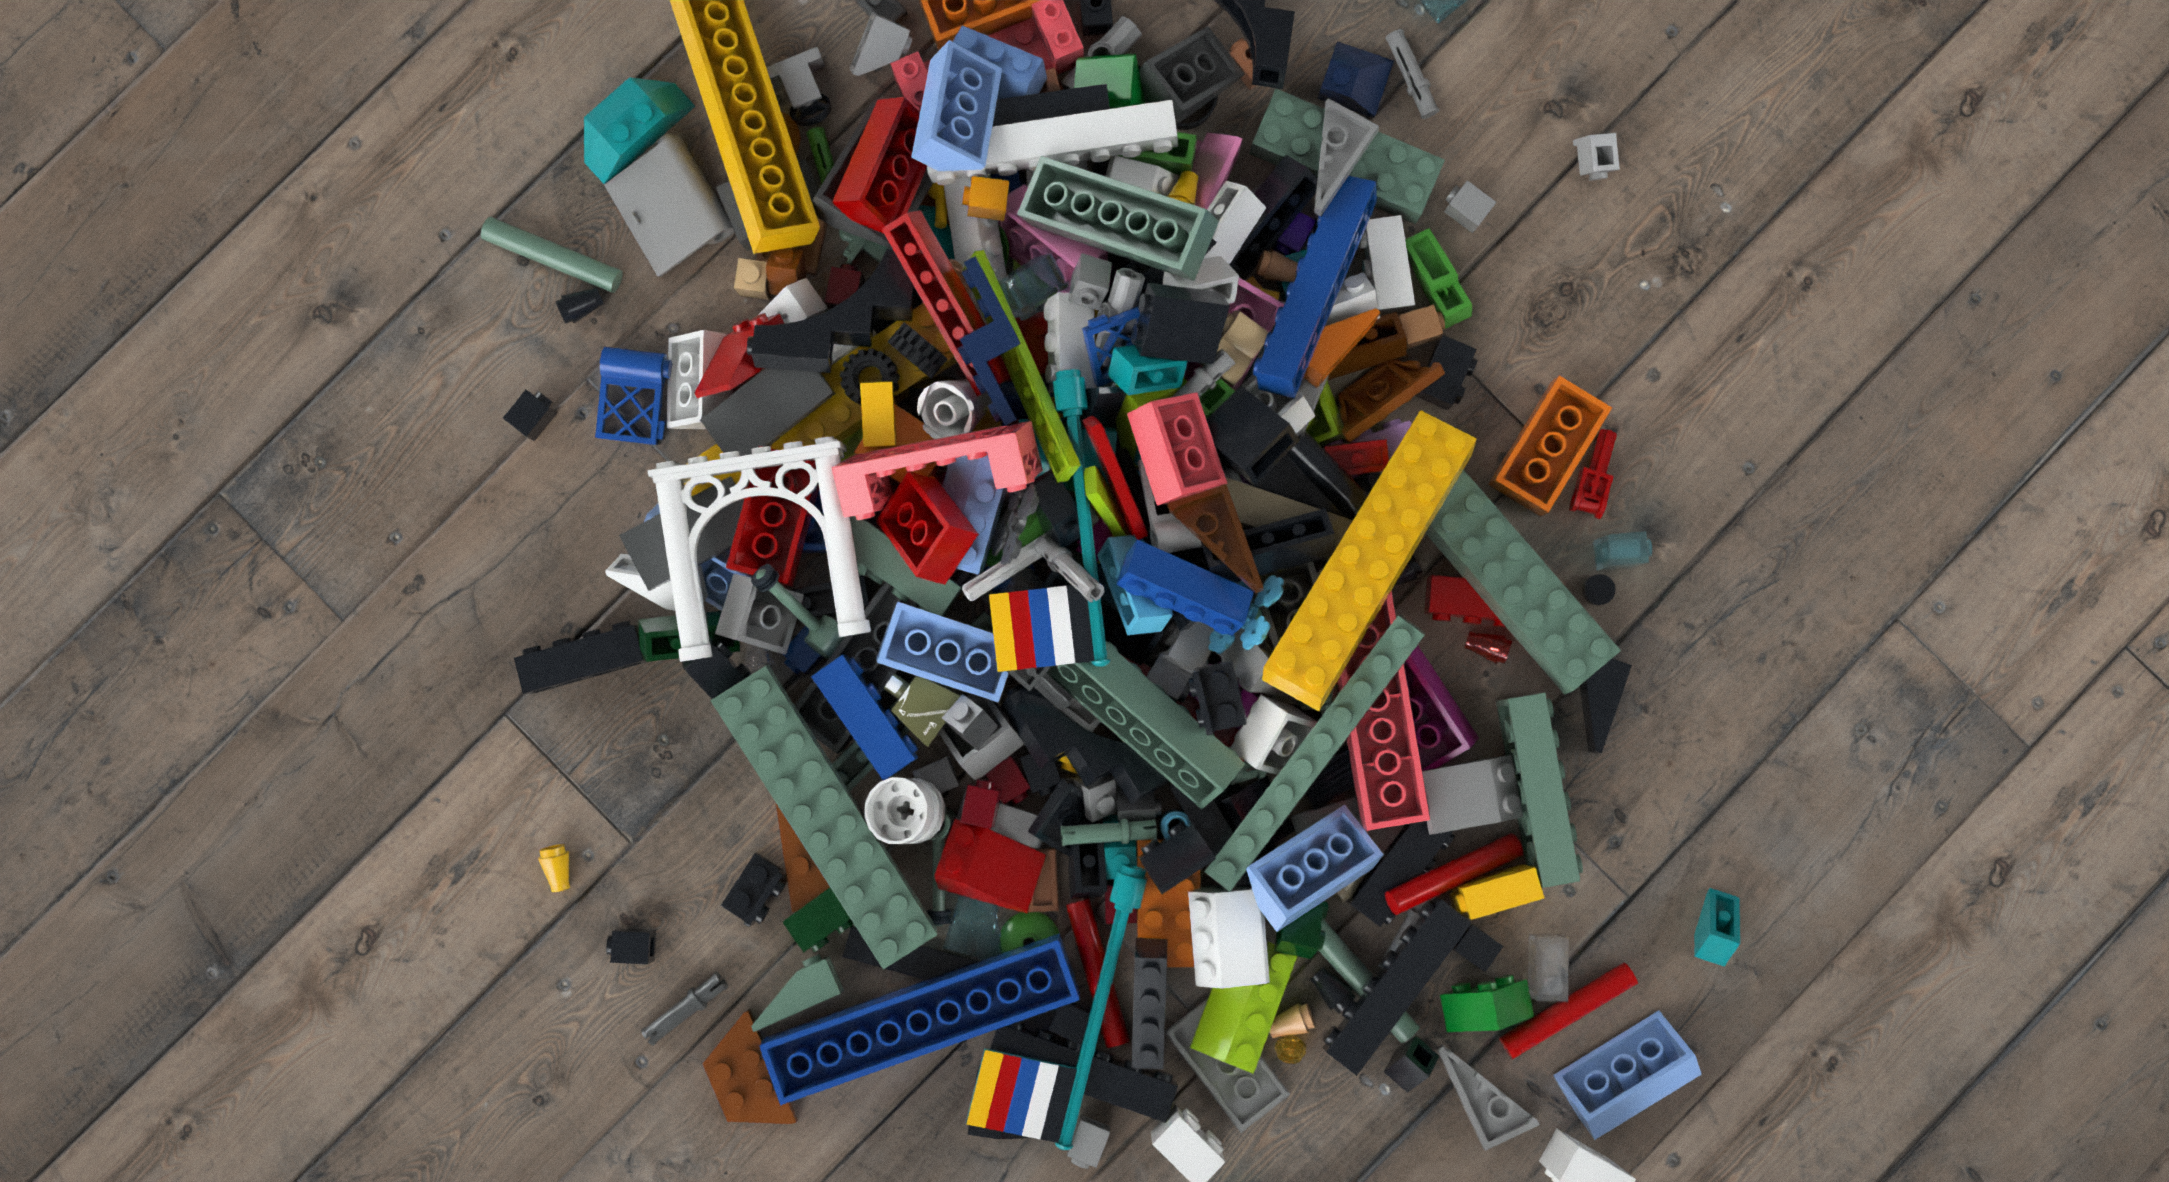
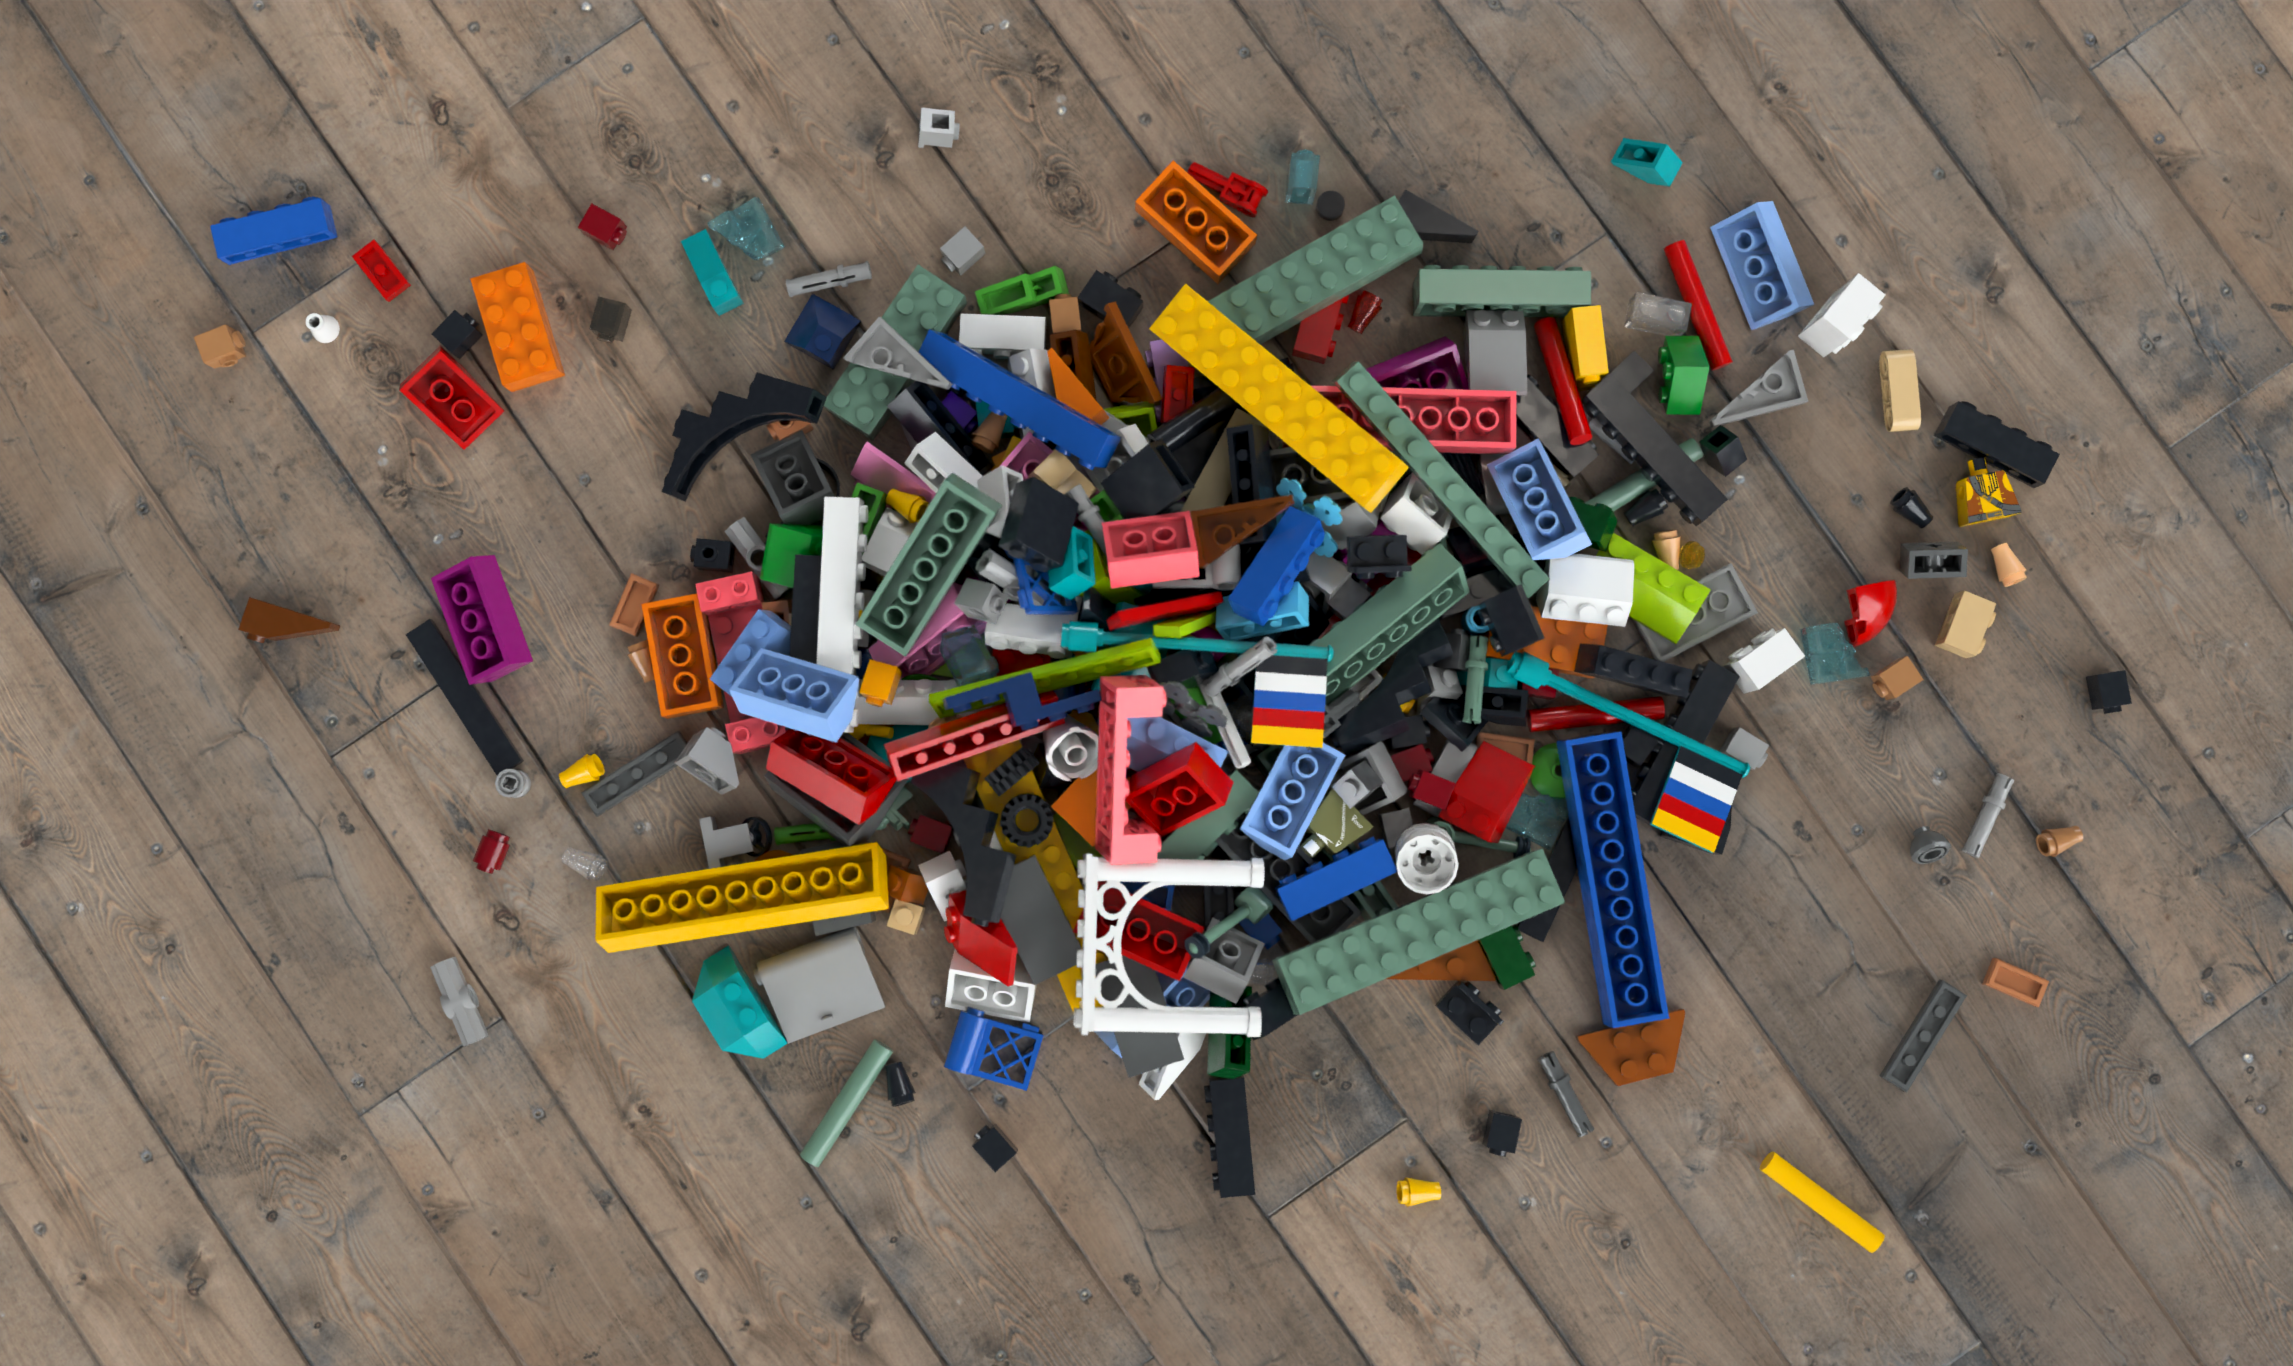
camera: 85 degrees left, 0 degrees up
(806, 988) = (1566, 978): sand green slope -> none
(878, 413) = (1063, 817): yellow tile -> none

